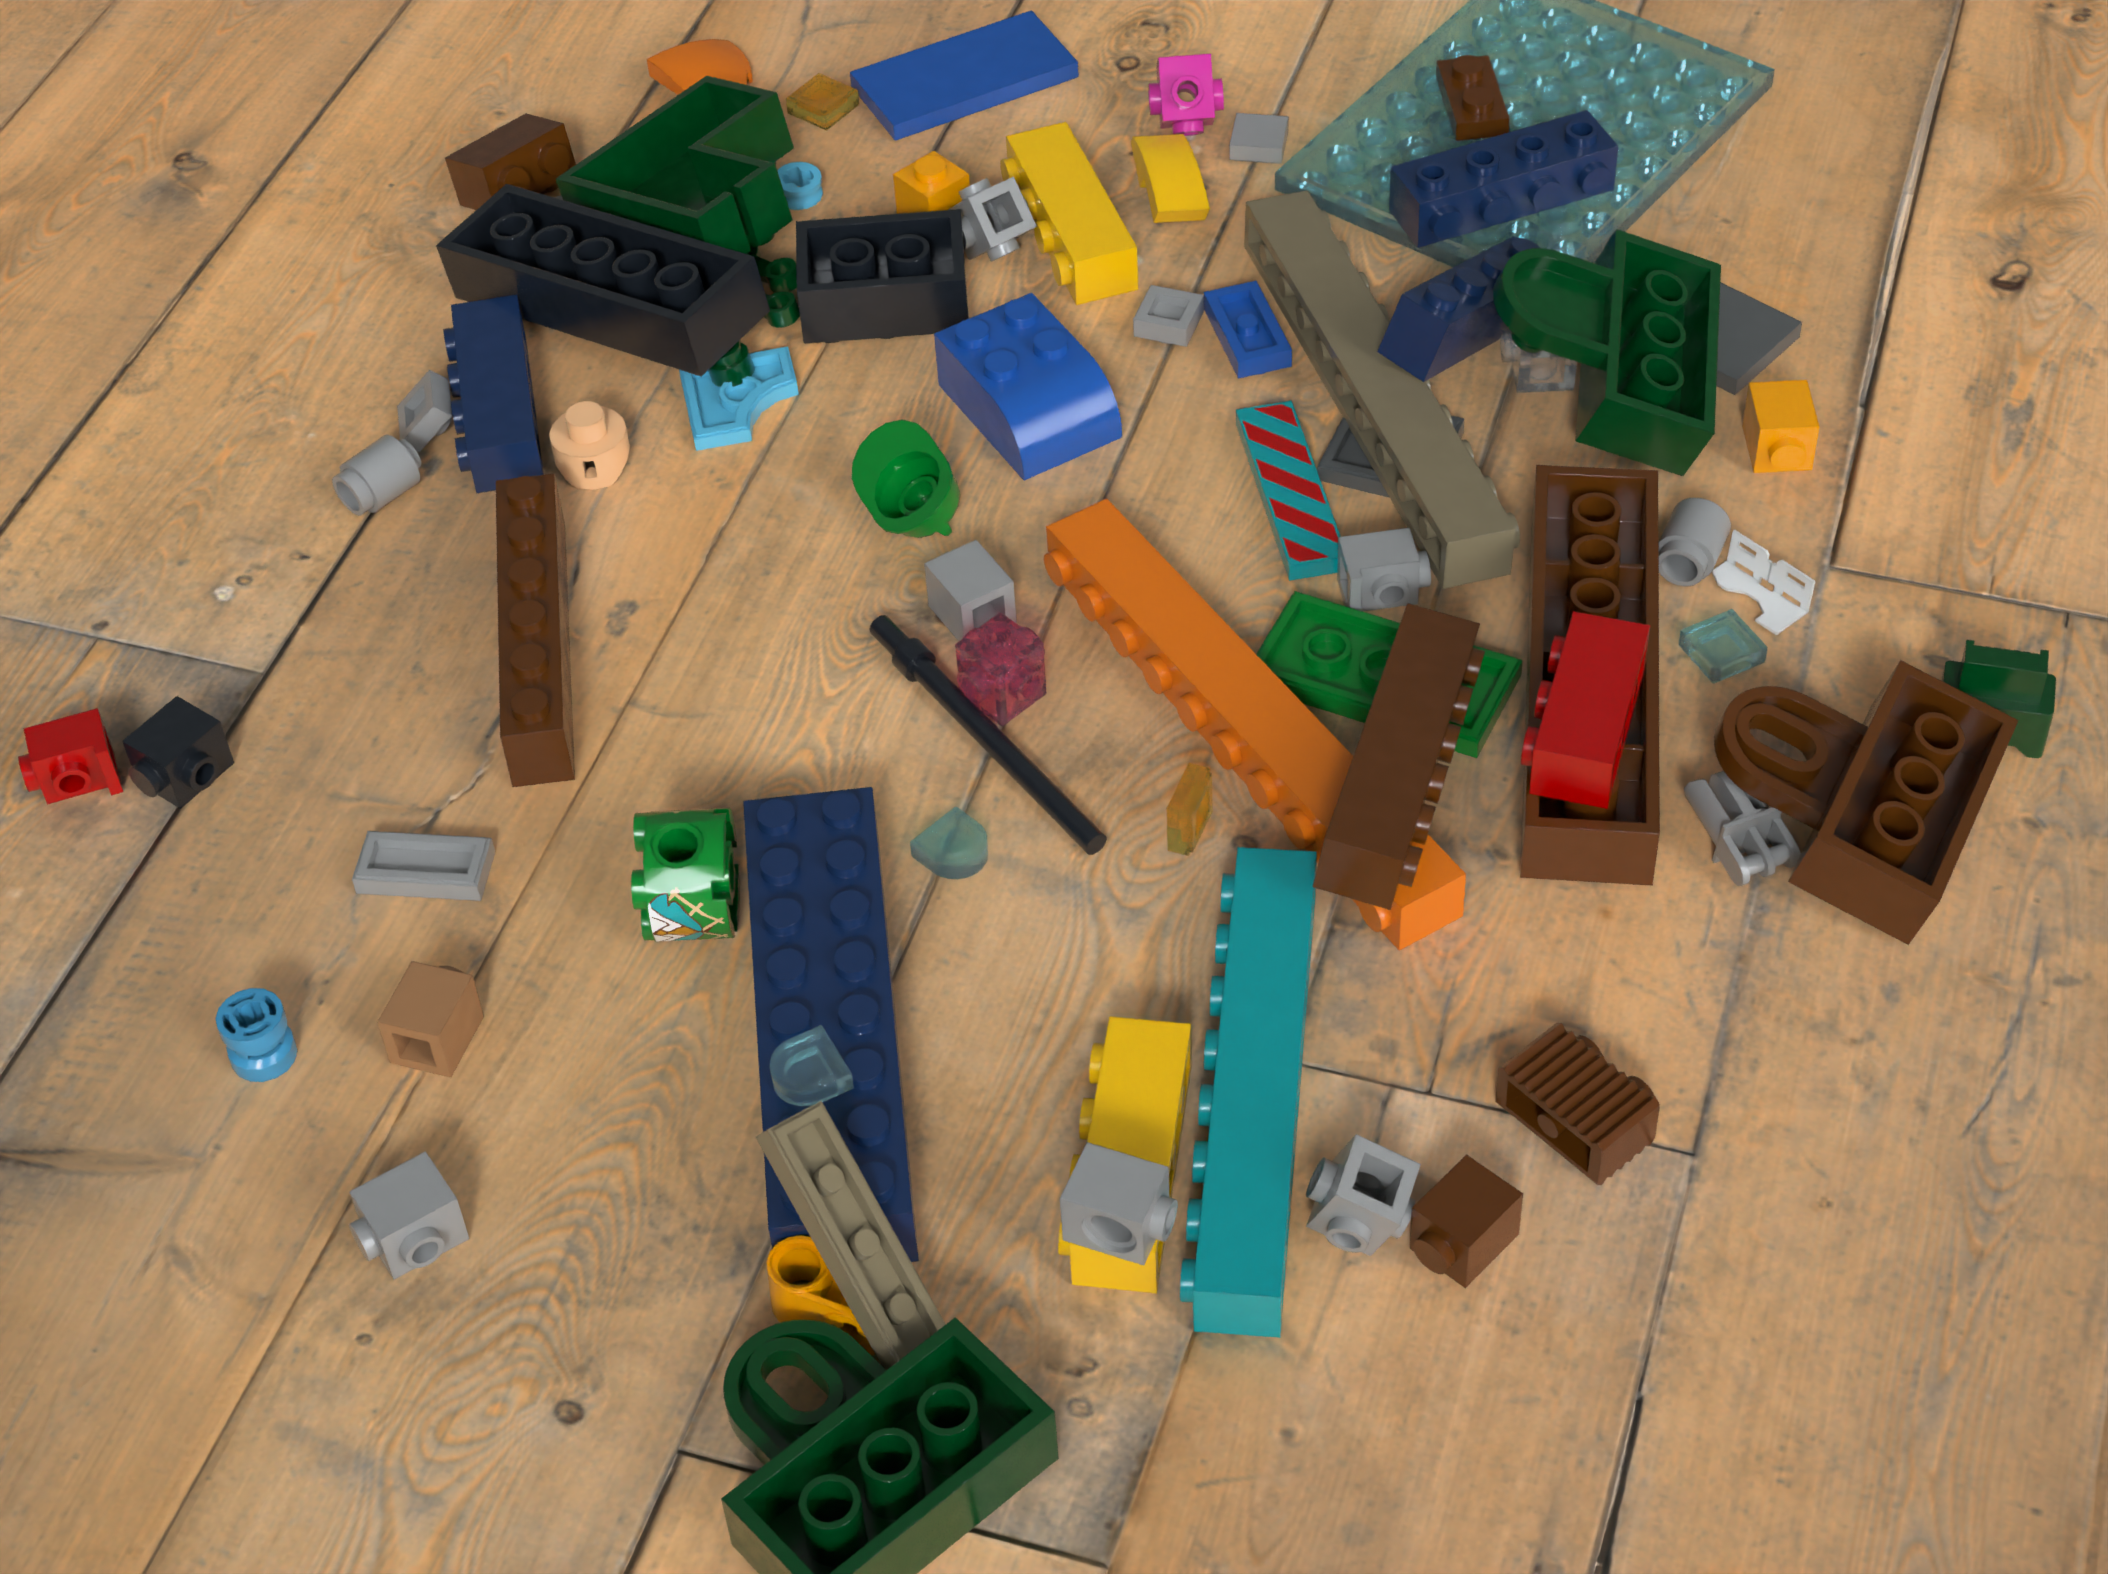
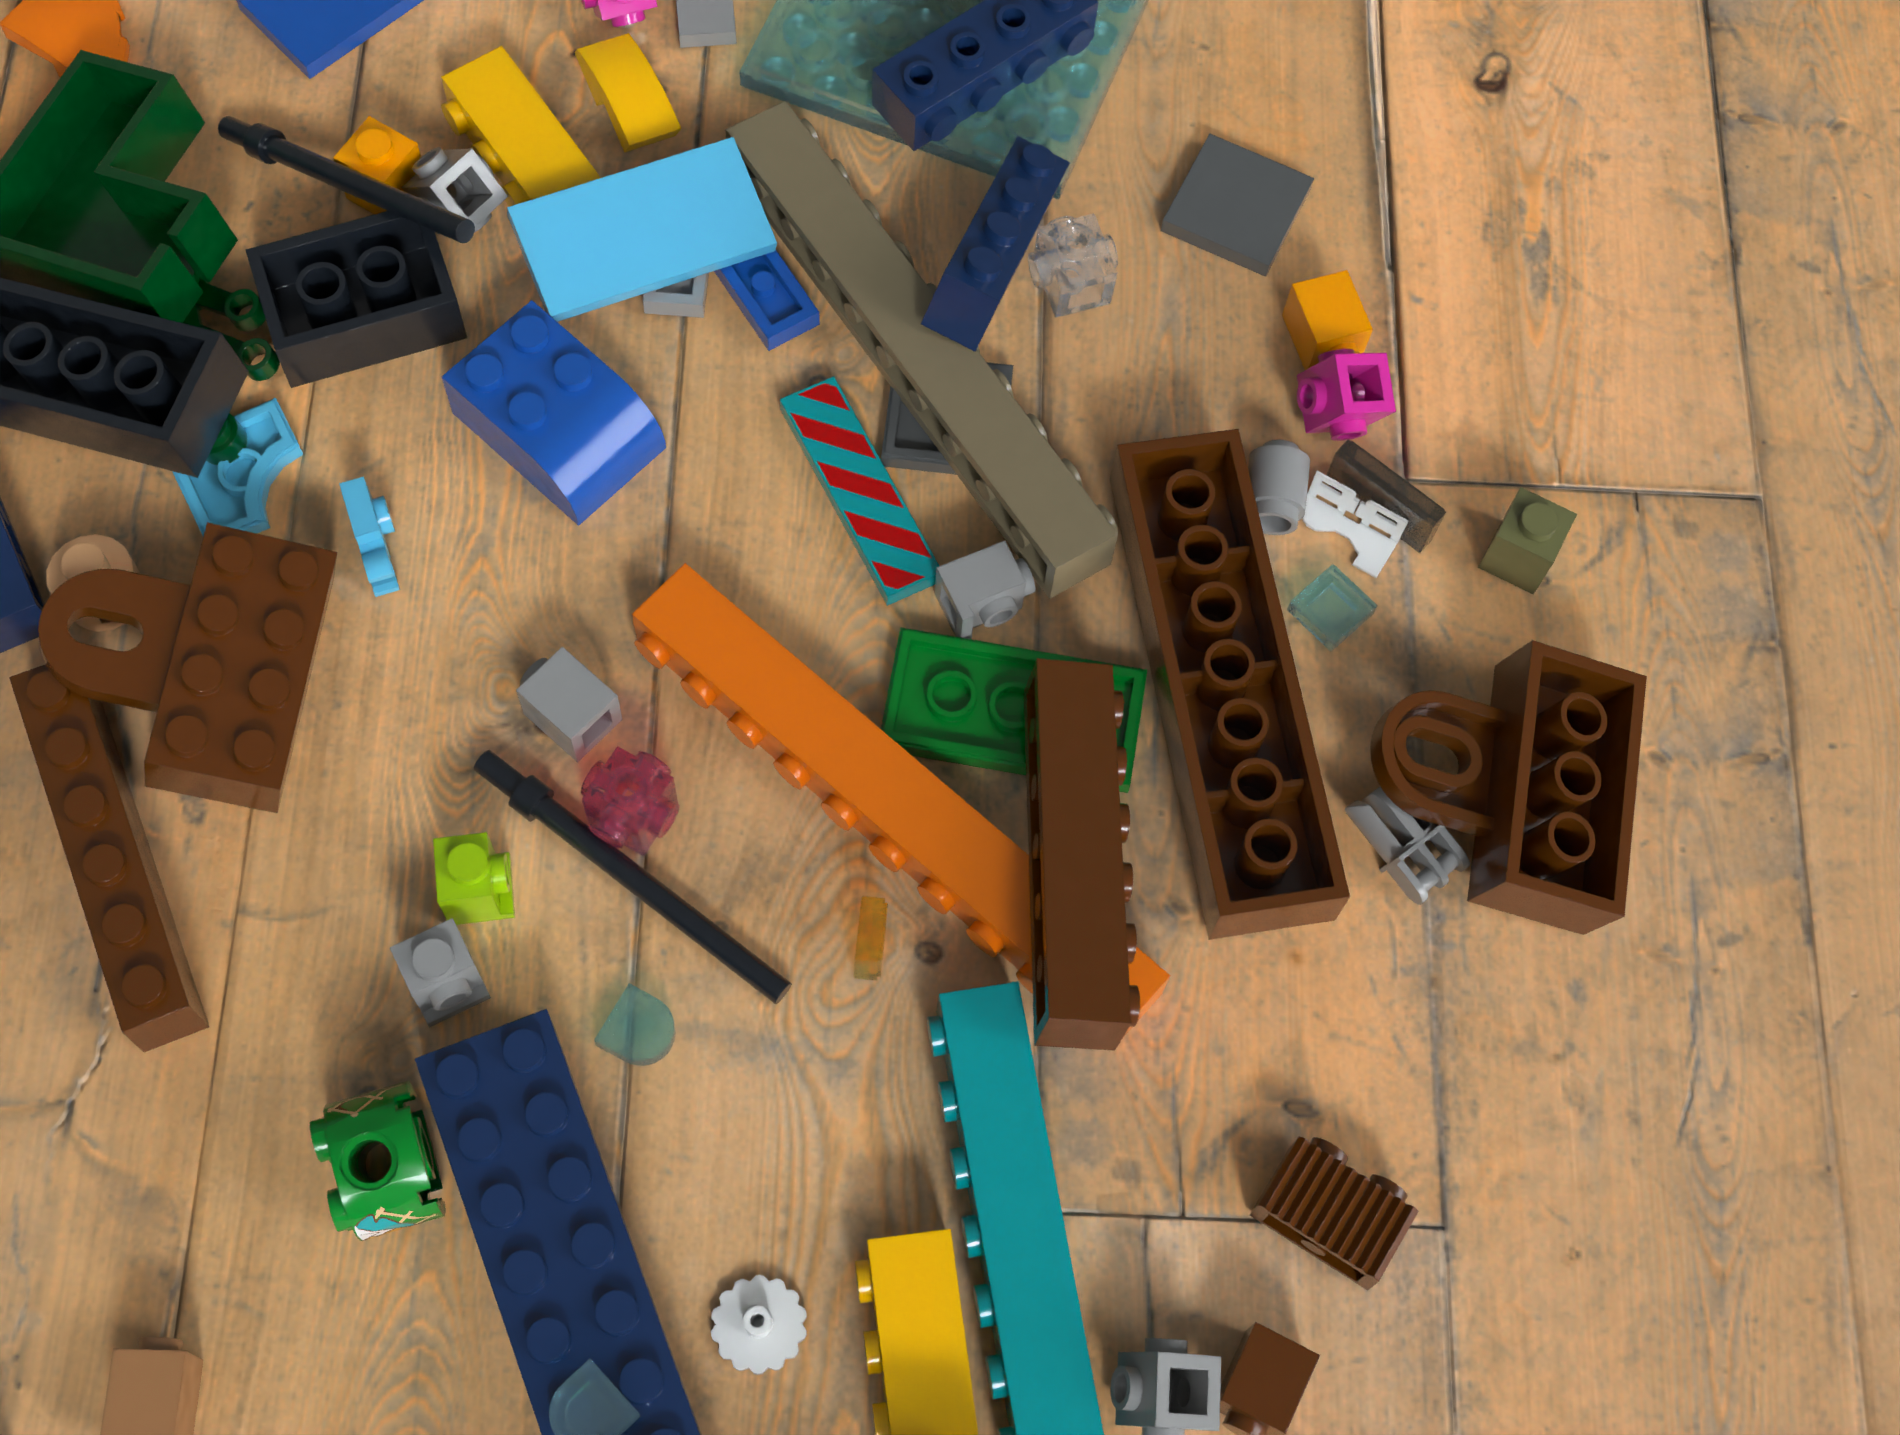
camera: 25 degrees left, 20 degrees up
(423, 865) = (78, 1185): light grey tile -> none
(670, 506) = (215, 659): none -> reddish brown brick
(788, 754) = (440, 972): none -> light grey brick
(809, 180) = (230, 153): medium azure bush -> none
(822, 101) = (214, 39): clear yellow tile -> none
(838, 440) = (370, 523): none -> medium azure plate
(840, 701) = (473, 879): none -> lime brick
(845, 172) = (272, 147): none -> black bar
(905, 480) = (460, 574): green piece -> none
(990, 1089) = (759, 1324): none -> white piece
(1147, 259) = (641, 229): none -> medium azure tile
(1586, 709) = (1253, 771): red brick -> none
(1643, 336) = (1173, 250): dark green brick -> none
(1778, 473) = (1345, 393): none -> dark pink brick
(1794, 546) = (1378, 483): none -> clear smoke tile
(1934, 616) = (1527, 540): none -> olive brick
(2014, 685) = (1614, 633): dark green piece -> none

